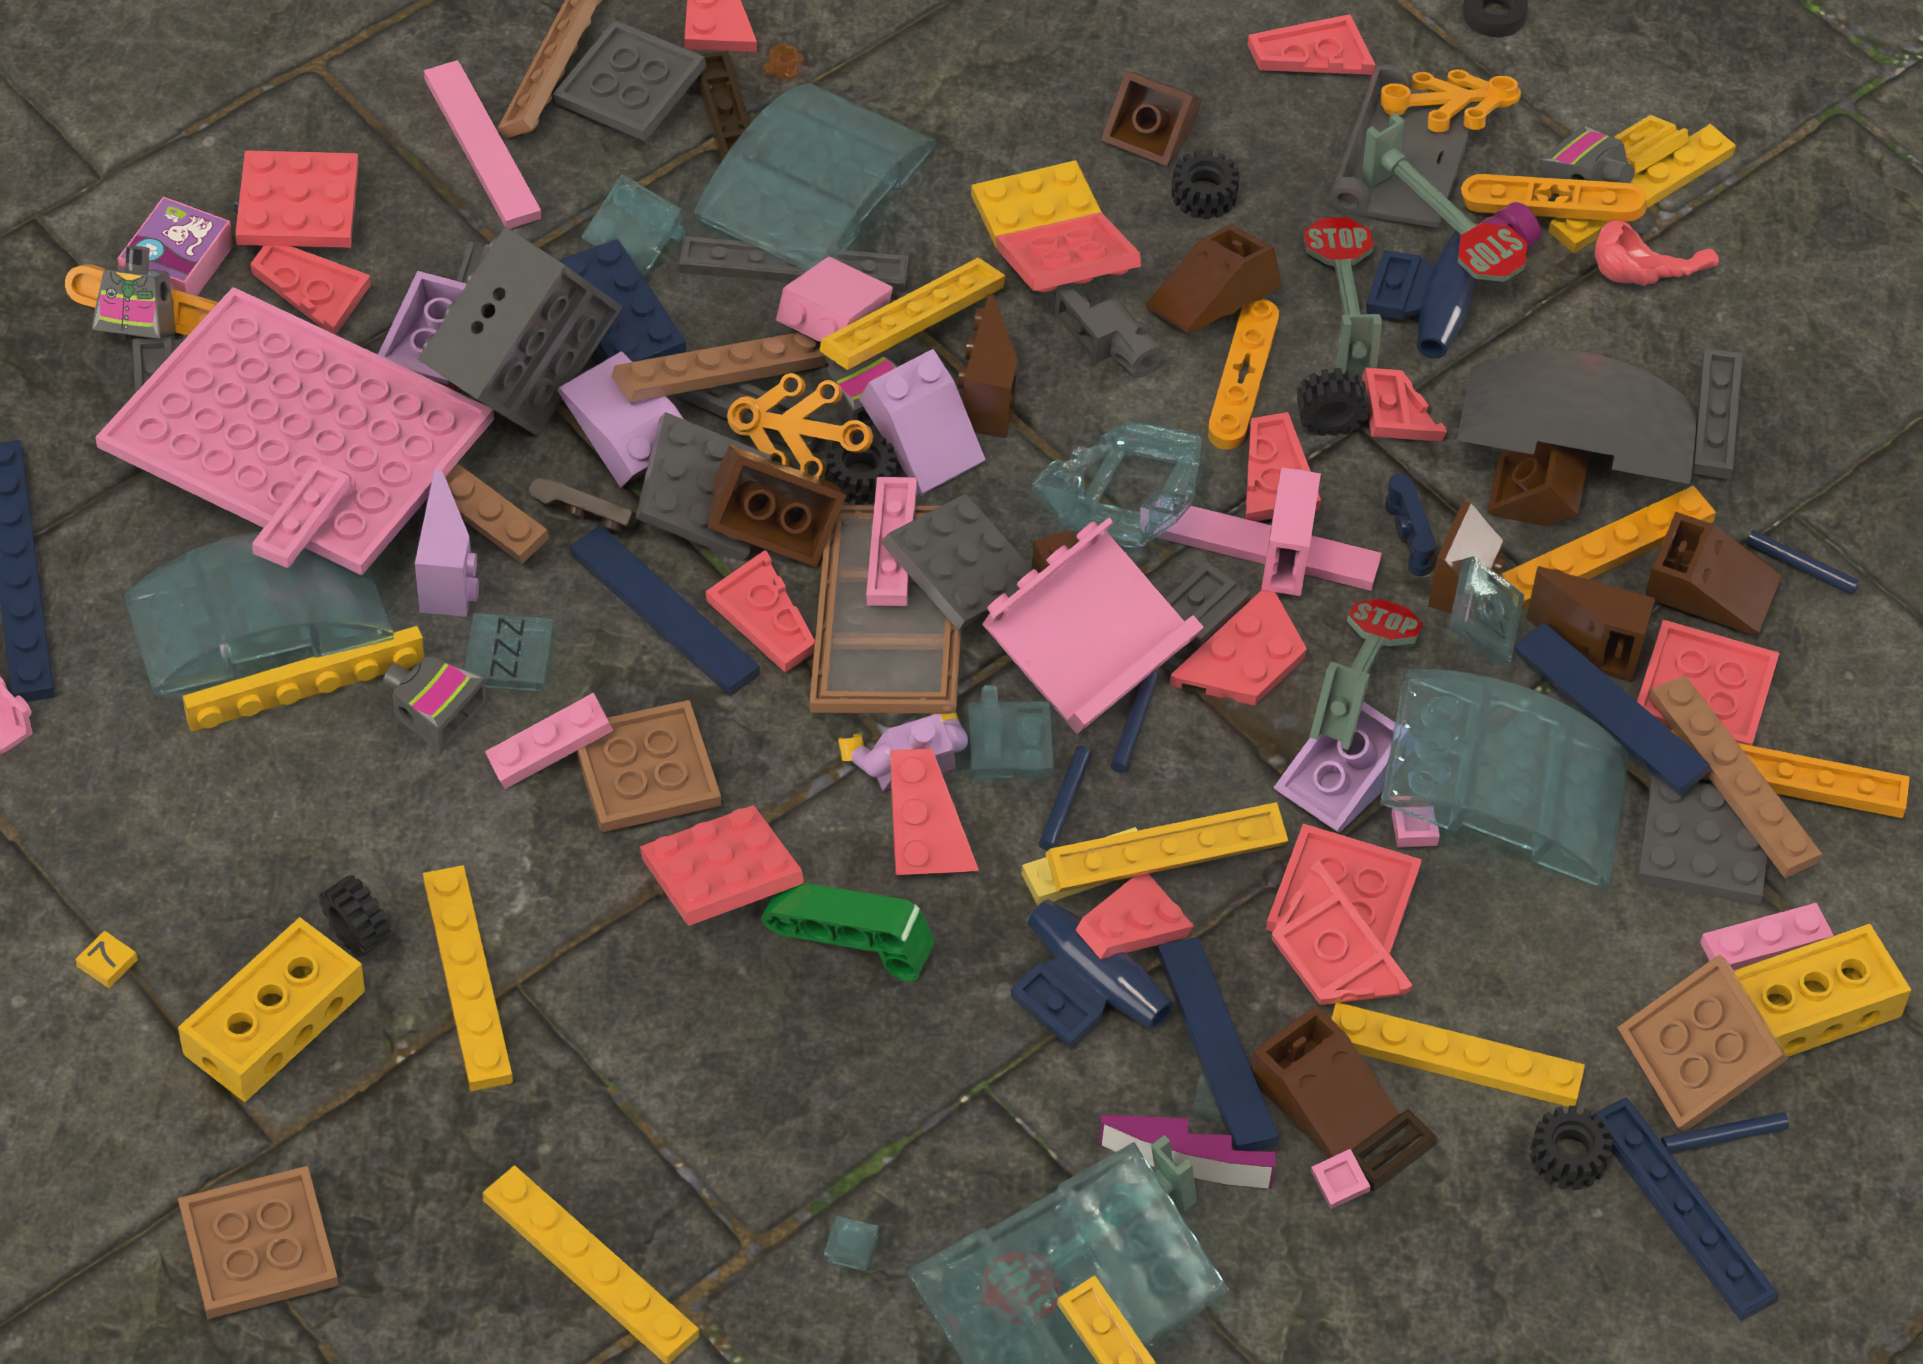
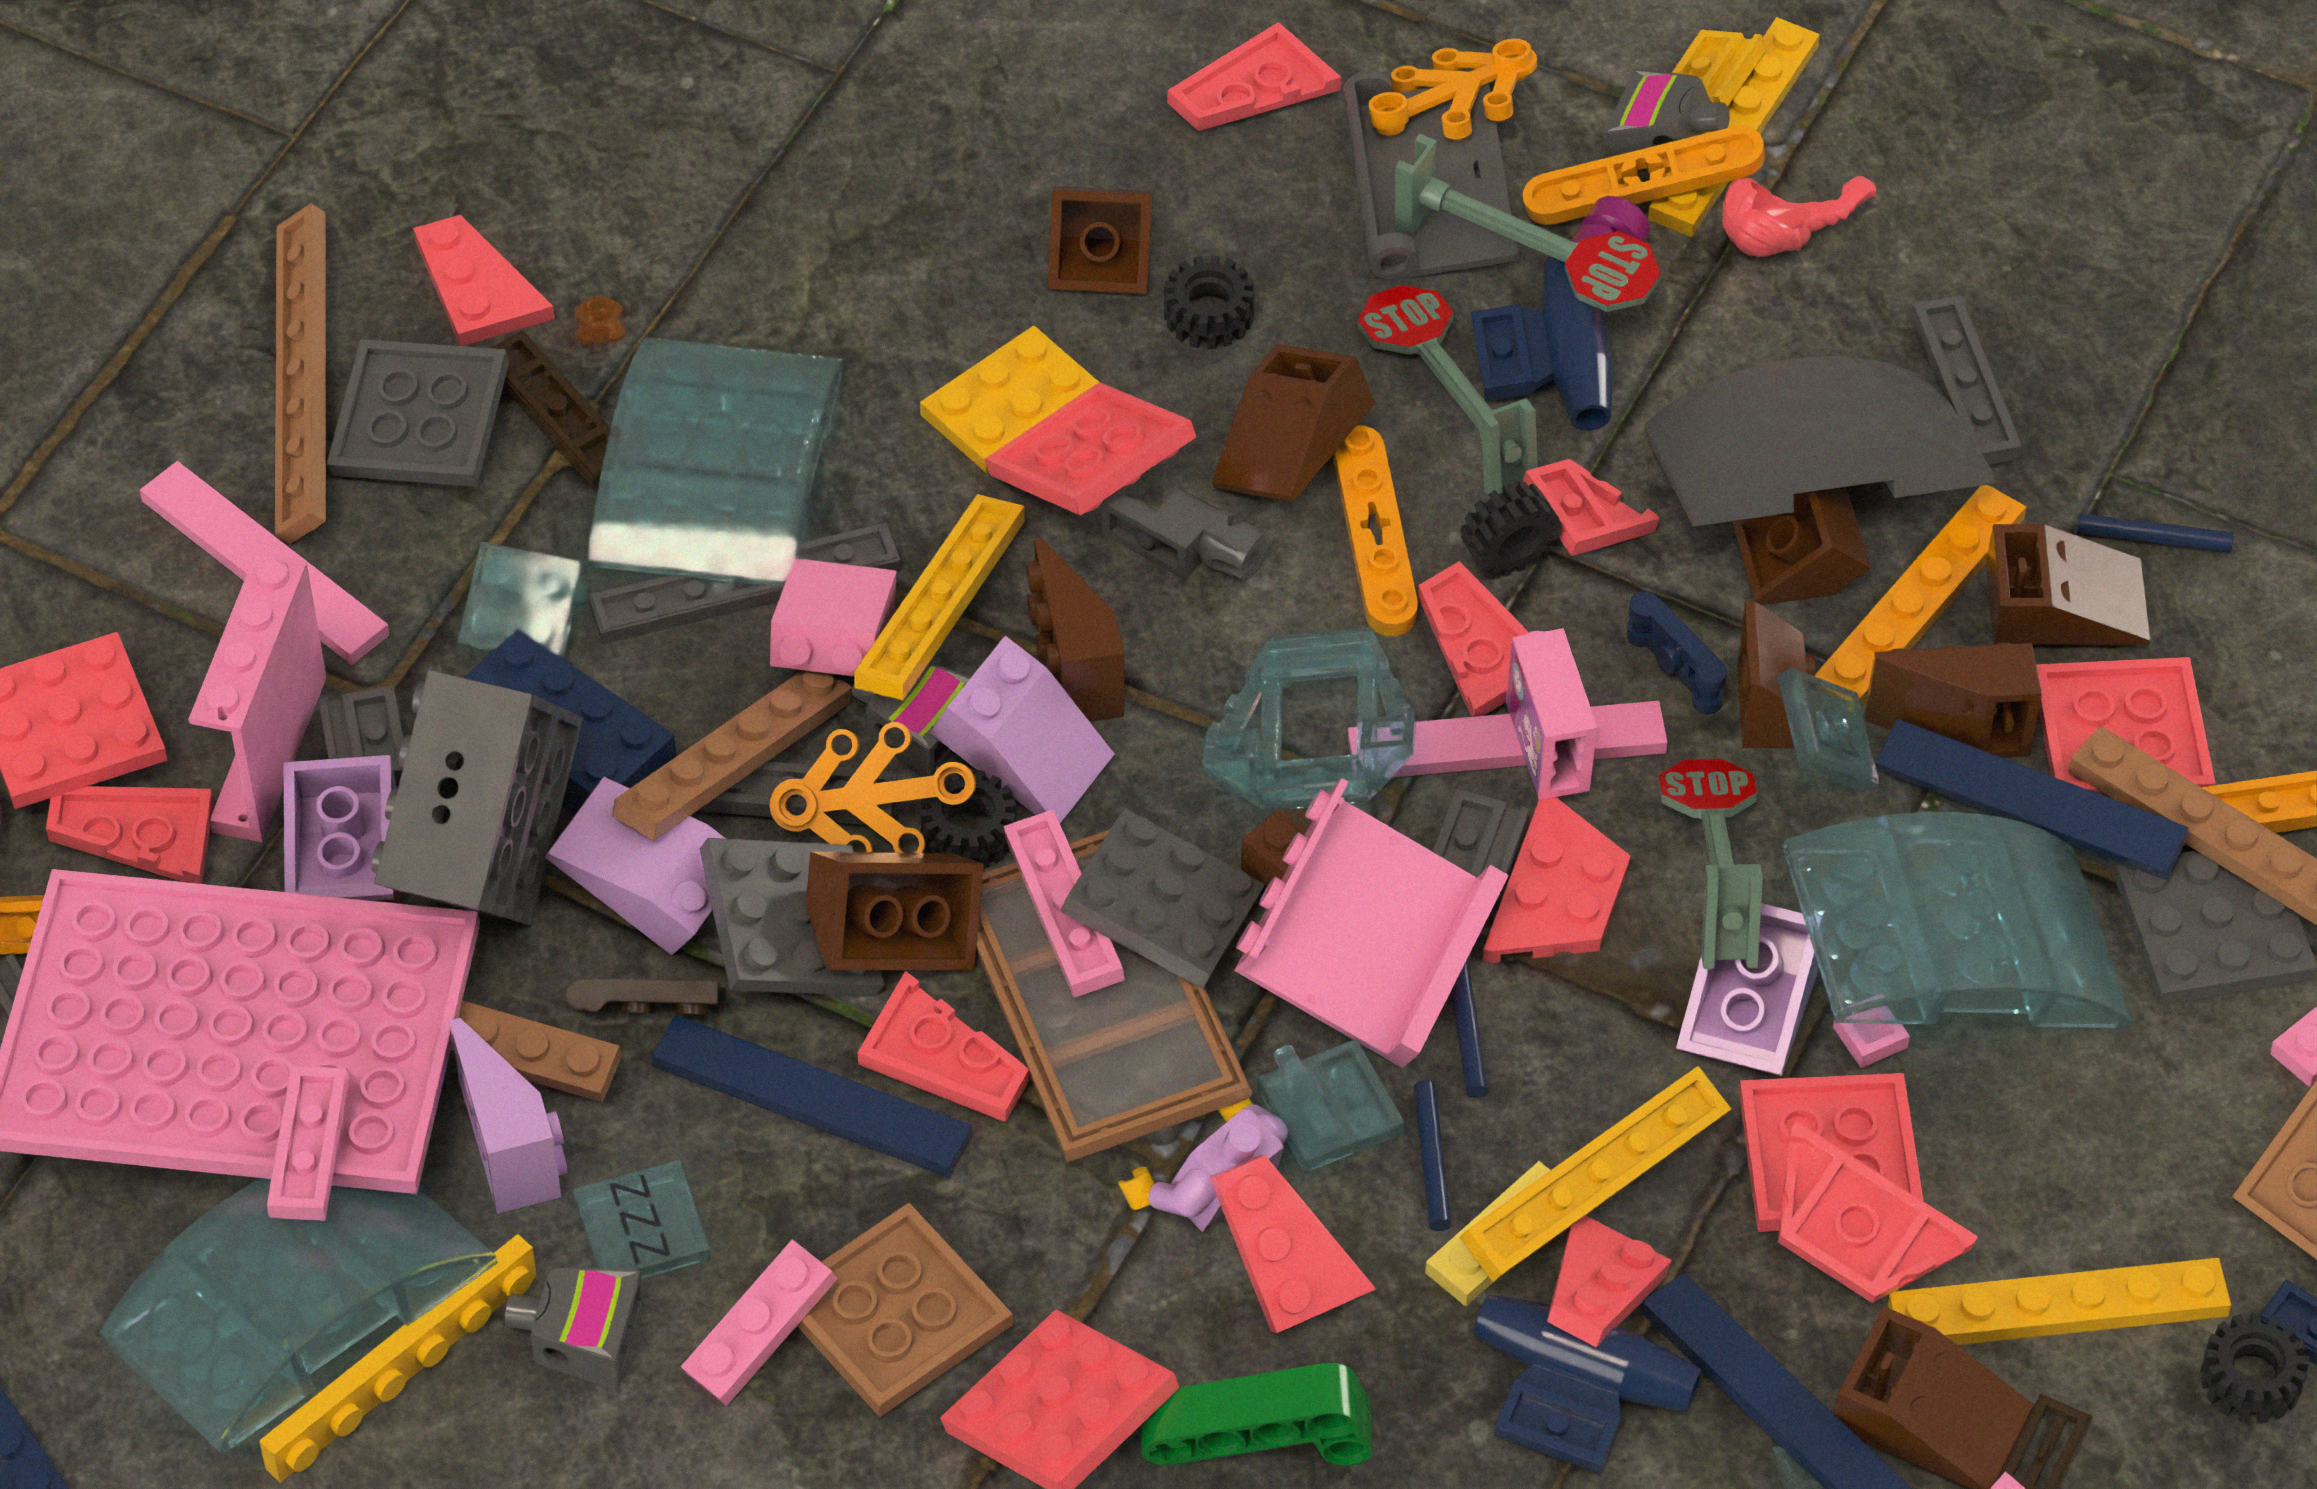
camera: 20 degrees left, 0 degrees up
(424, 216) = (266, 687): none -> bright pink panel

